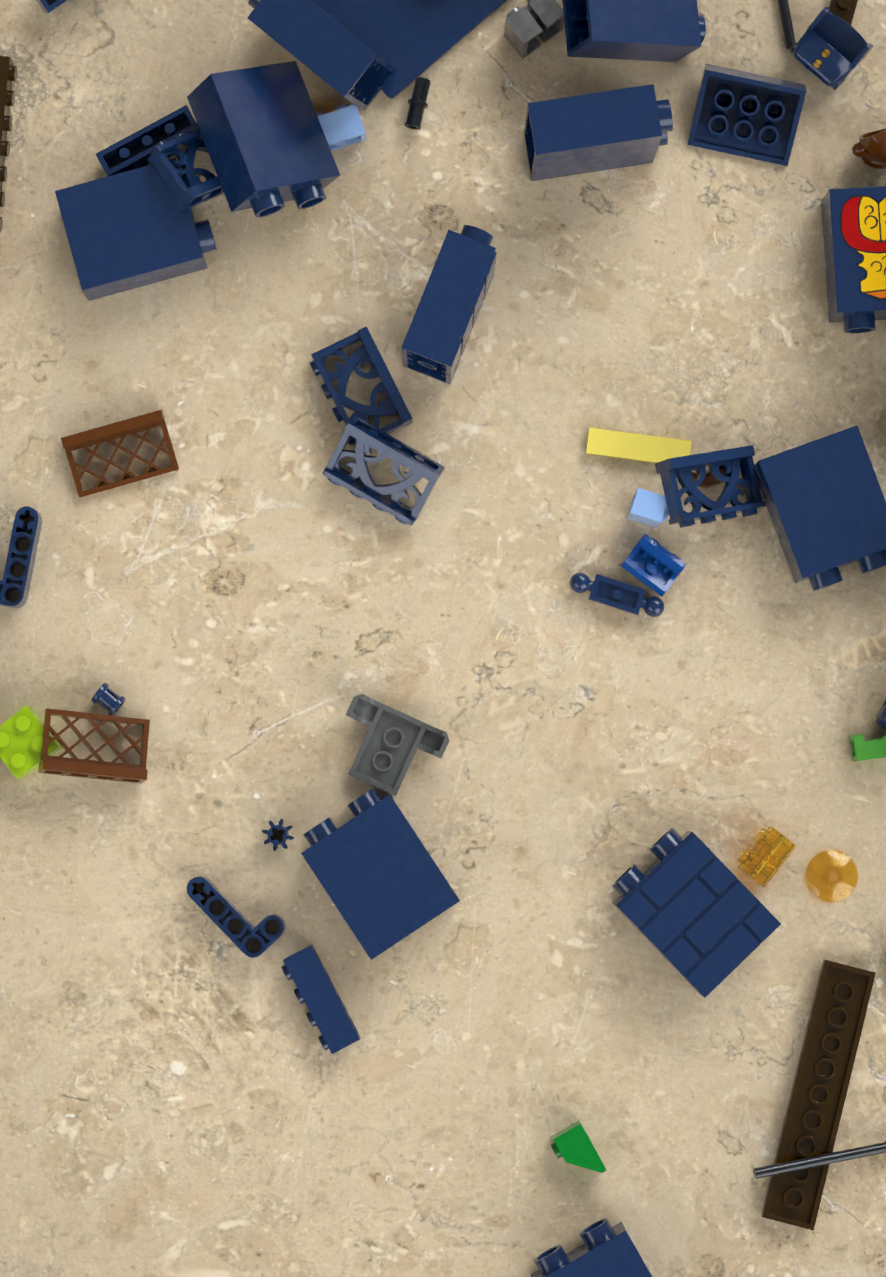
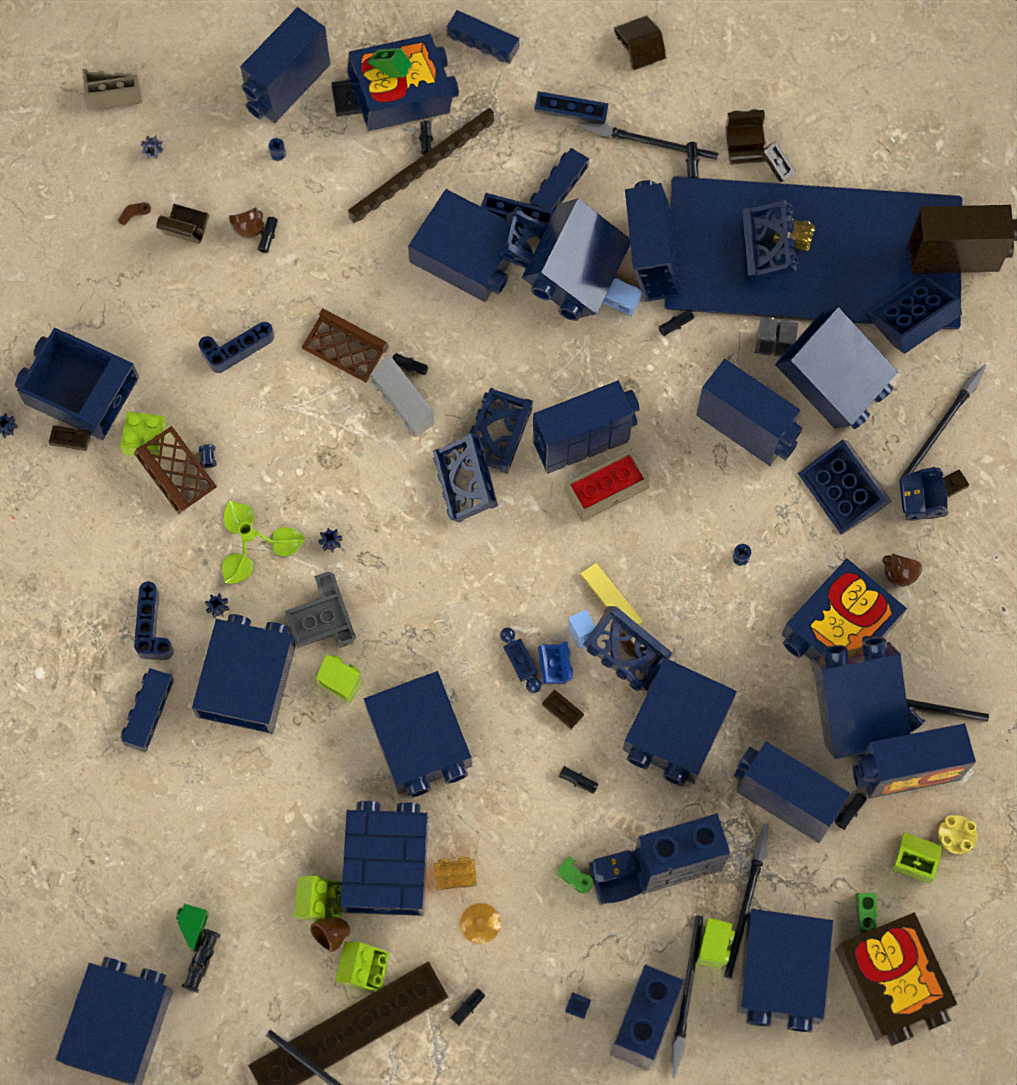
camera: 50 degrees right, 15 degrees down
(153, 66) = (561, 180): none -> dark blue brick
(203, 408) = (410, 364): none -> black axle
(203, 731) = (239, 519): none -> lime plant
(235, 449) = (402, 396): none -> light grey slope
(323, 665) = (331, 545): none -> dark blue gear
(470, 787) = (339, 678): none -> lime slope
(523, 340) = (606, 485): none -> brick
(603, 764) = (419, 734): none -> dark blue brick
(616, 1162) = (202, 958): none -> black piece
(667, 1007) = (317, 898): none -> lime slope
(704, 602) = (562, 709): none -> dark brown plate
(712, 1025) = (330, 932): none -> reddish brown piece
(723, 275) = (739, 549): none -> dark blue bush
(770, 1026) = (362, 966): none -> lime slope
(786, 653) = (578, 780): none -> black axle

